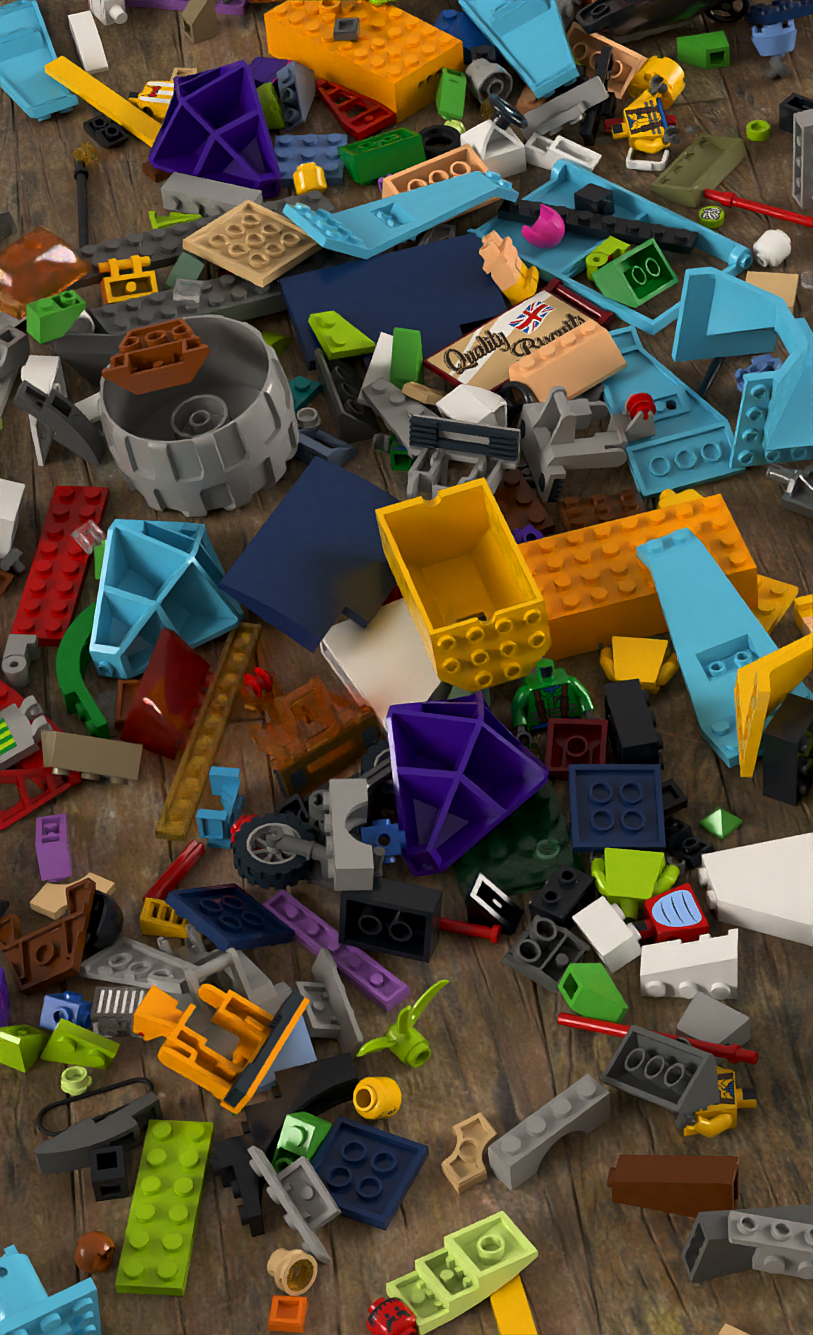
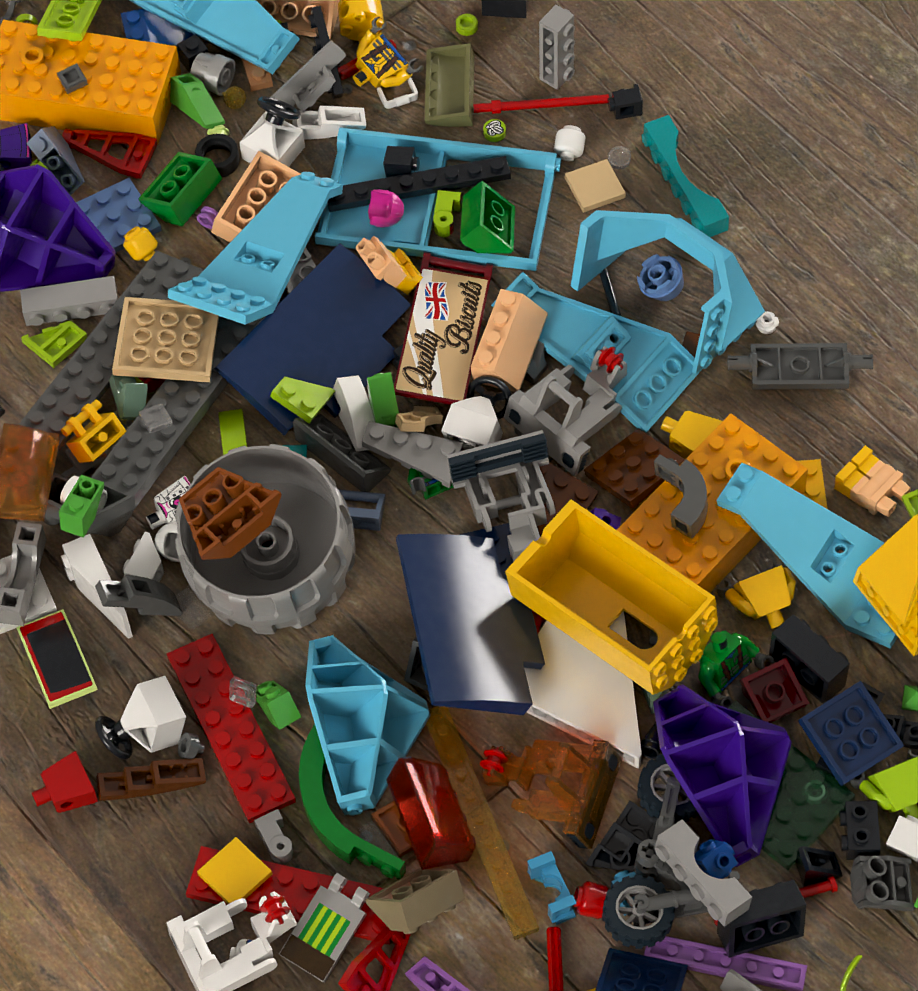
camera: 35 degrees left, 15 degrees up
(613, 538) = (693, 508): none -> dark grey arch

